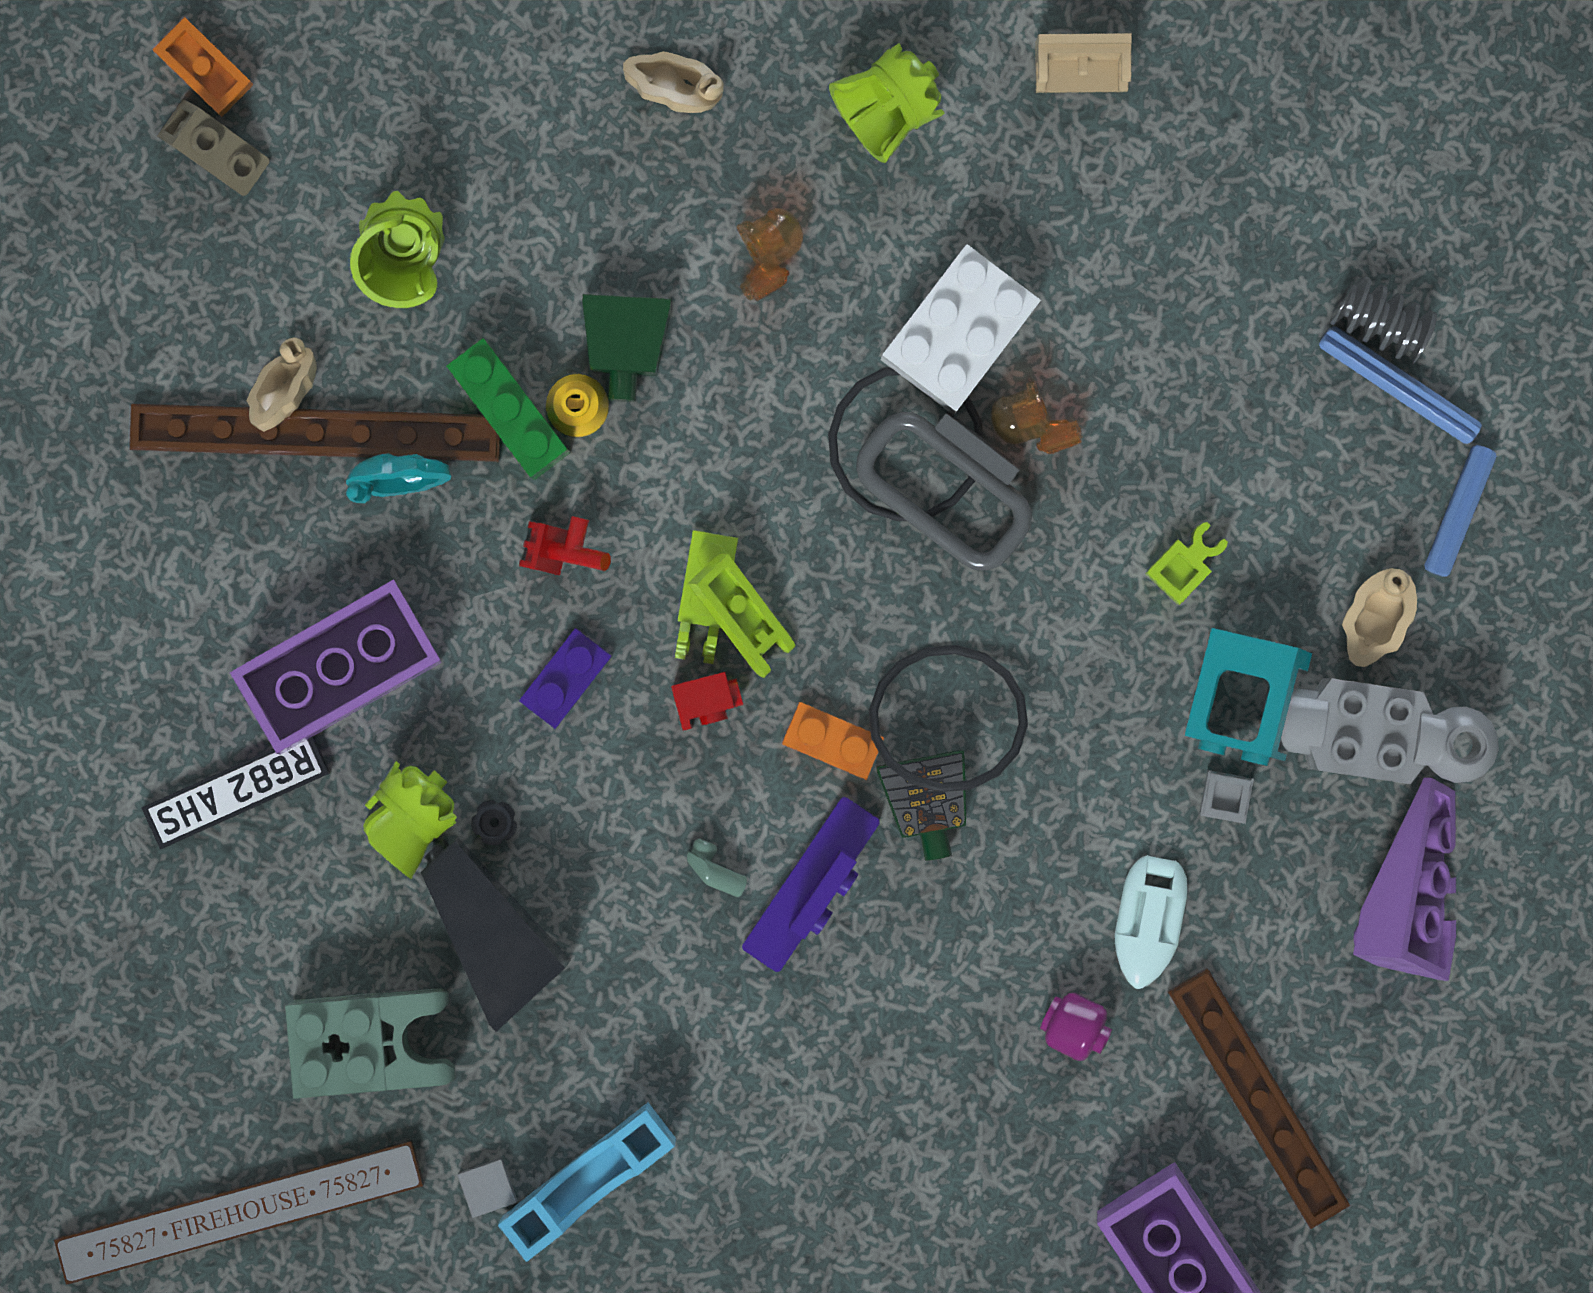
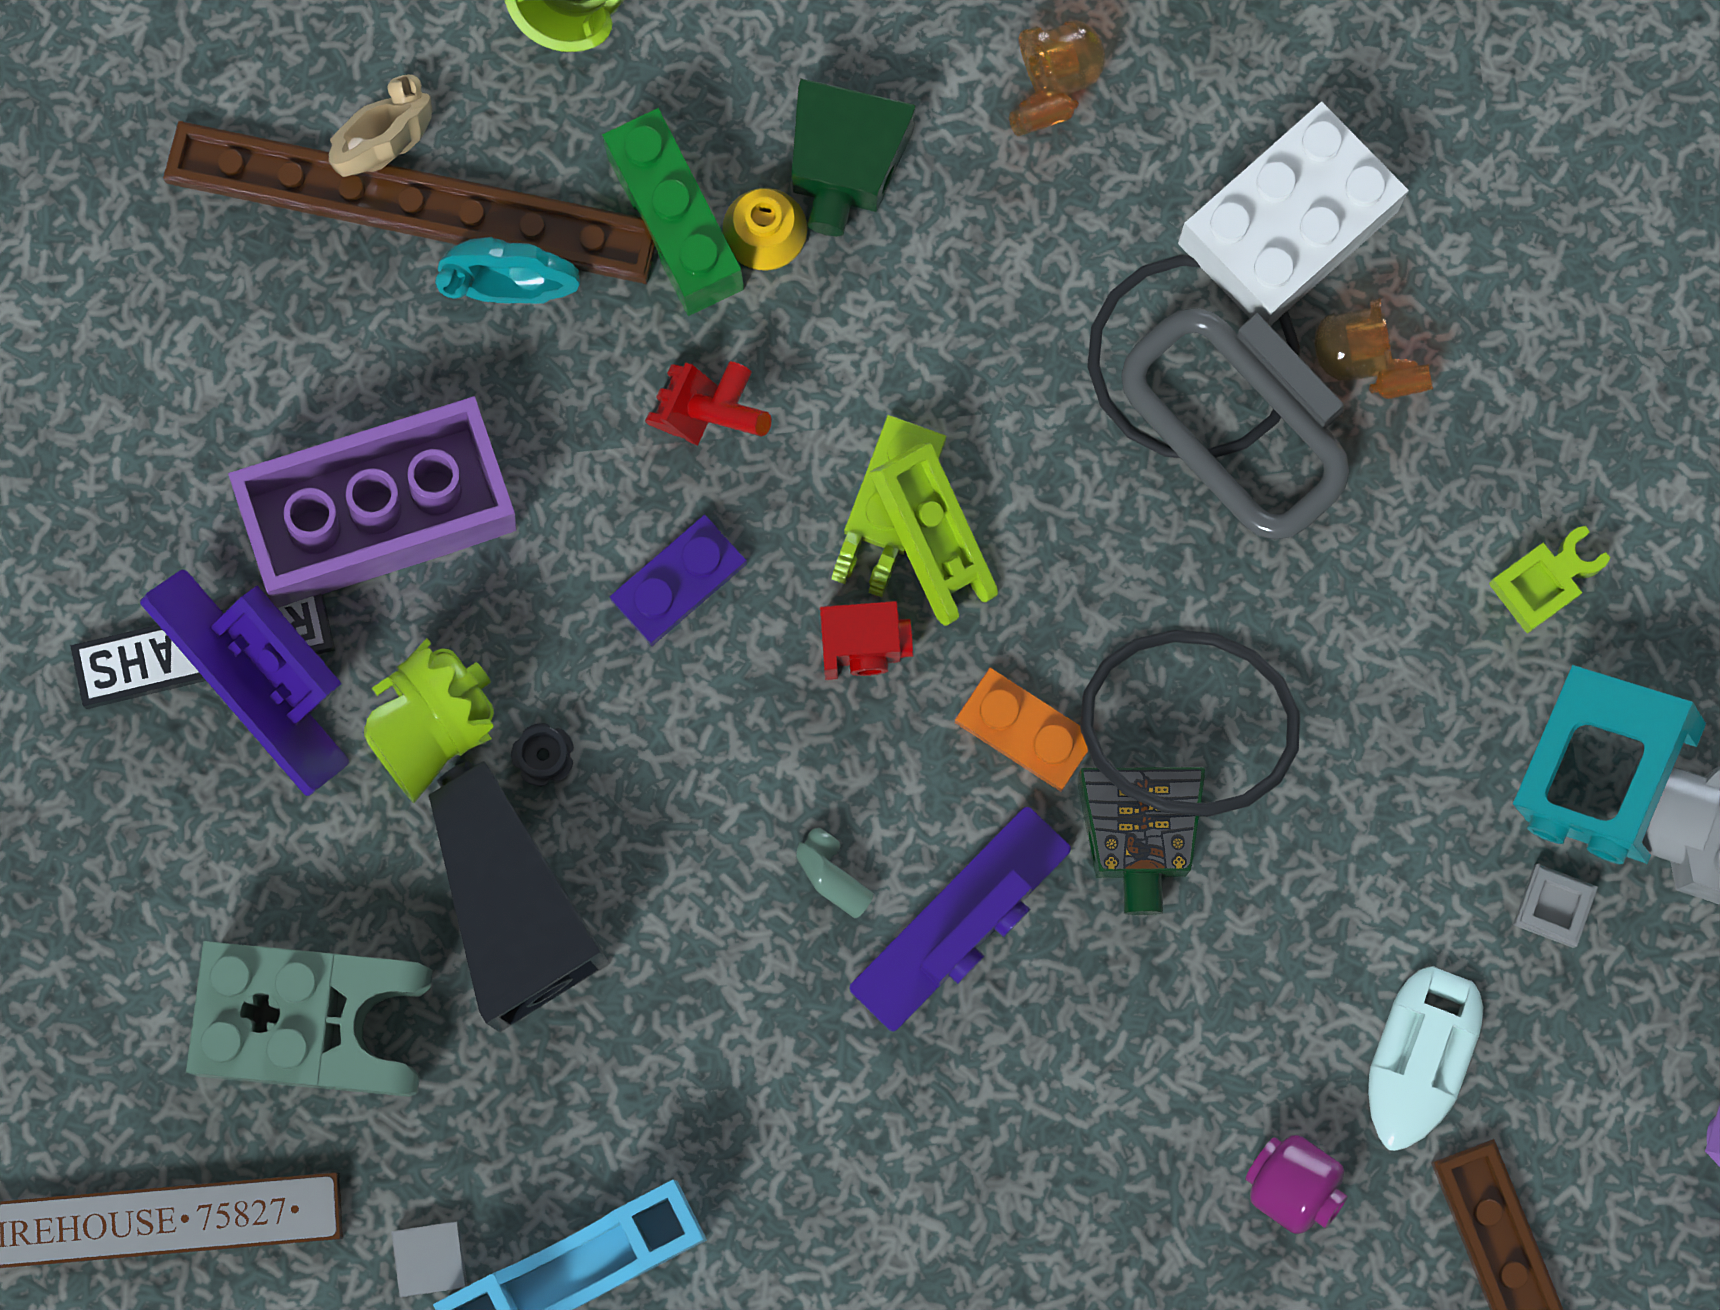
camera: 10 degrees right, 10 degrees down
(279, 805) = (257, 670): none -> dark purple bracket

